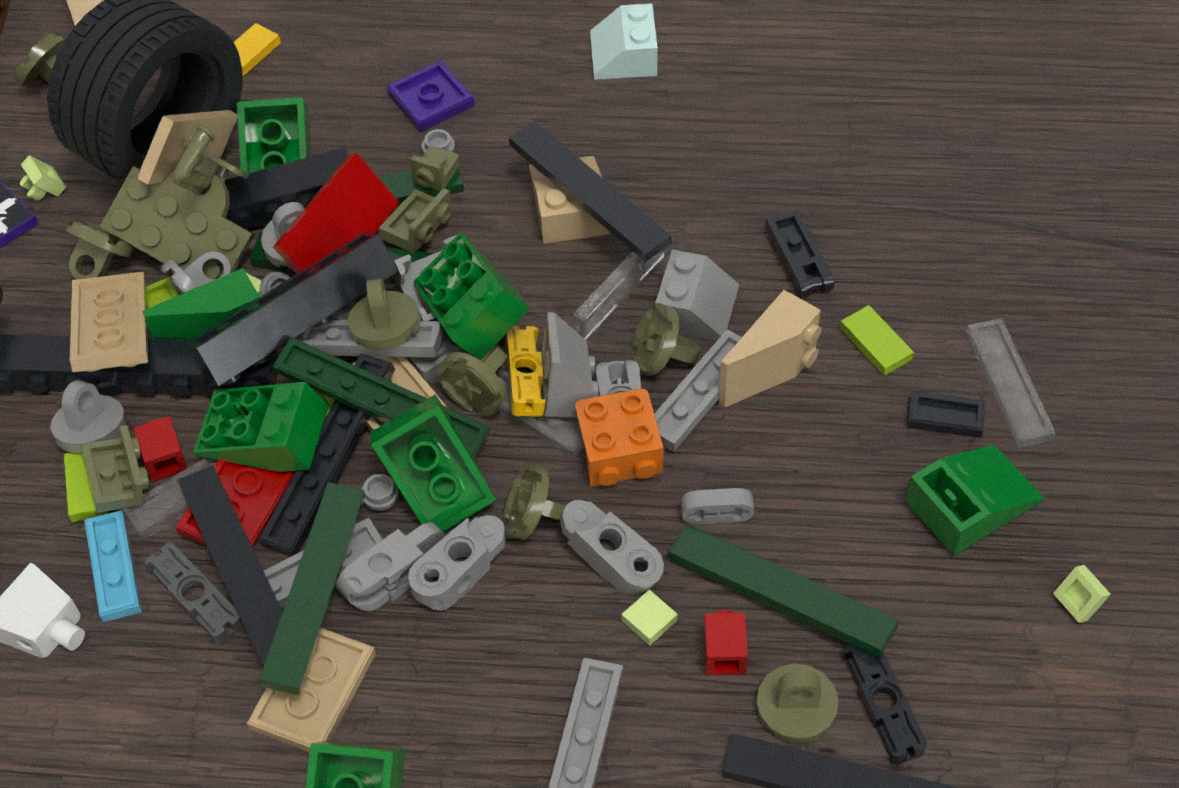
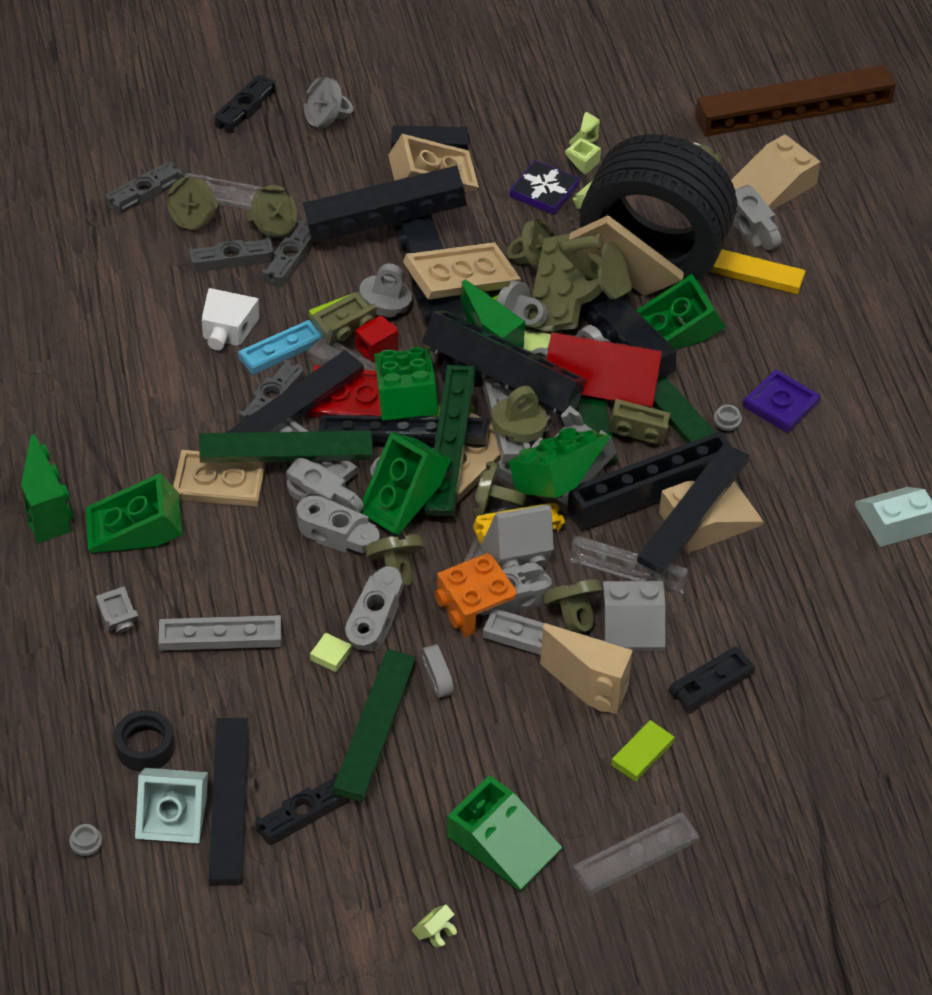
camera: 70 degrees right, 5 degrees down
(434, 167) = (695, 419): olive bracket -> none
(513, 225) = (640, 482): none -> black brick
(725, 643) = (318, 697): red brick -> none
(797, 703) = (285, 755): olive tile -> none
(946, 414) = (585, 812): black tile -> none

